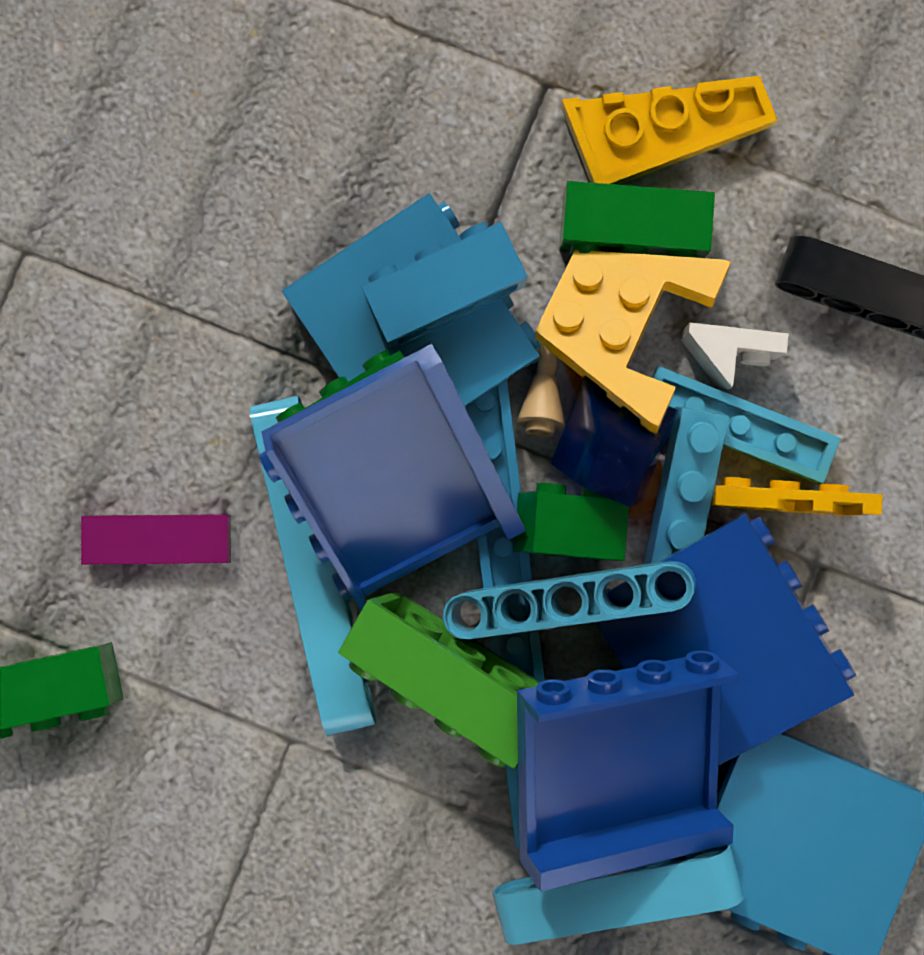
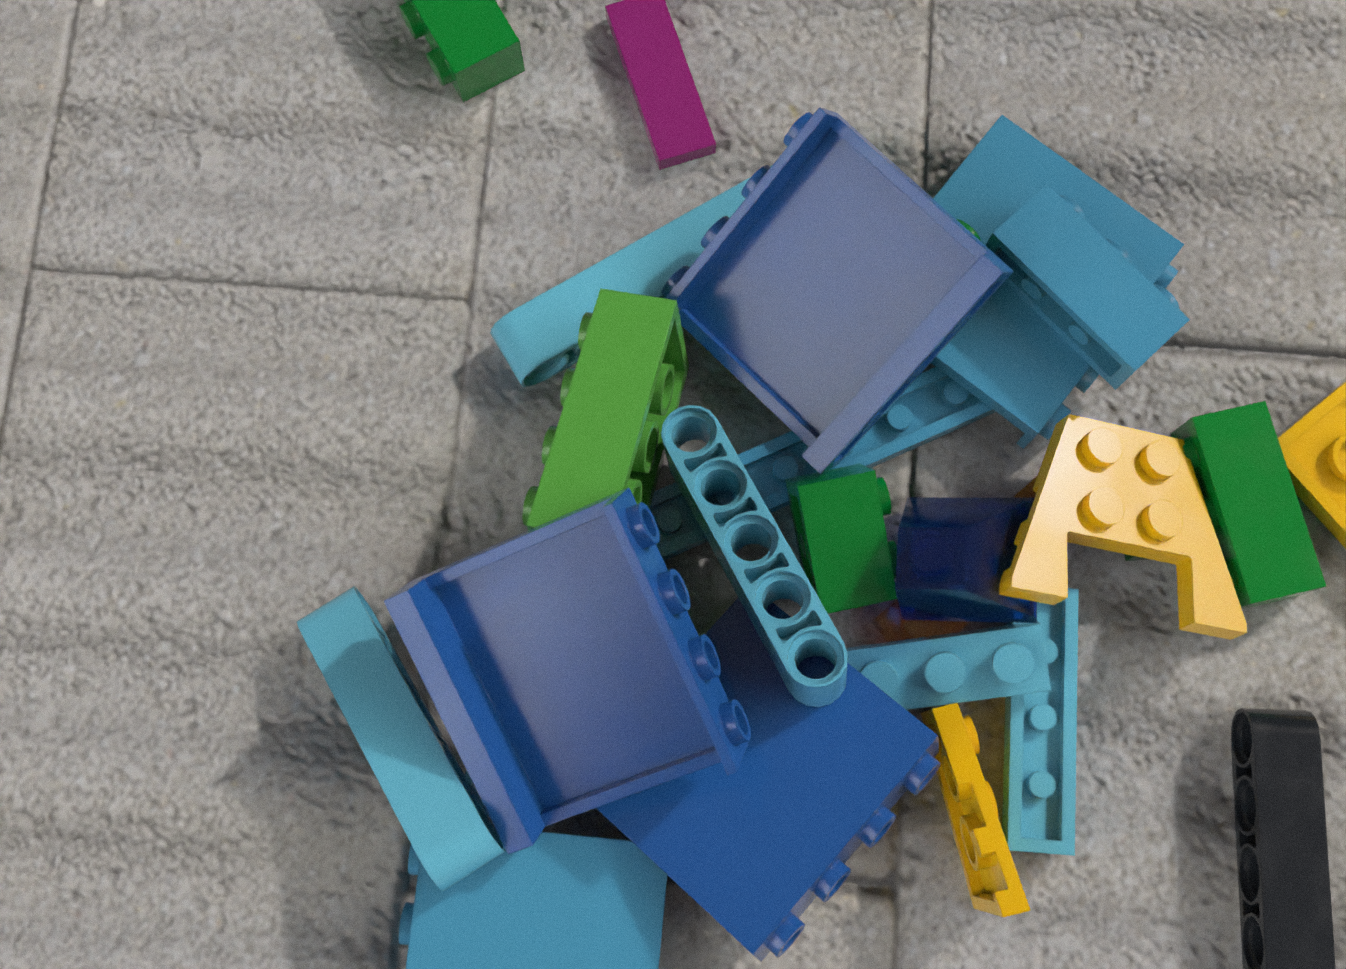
camera: 70 degrees right, 10 degrees down
(542, 407) = (971, 465): tan cone -> none
(718, 346) = (1135, 657): white slope -> none

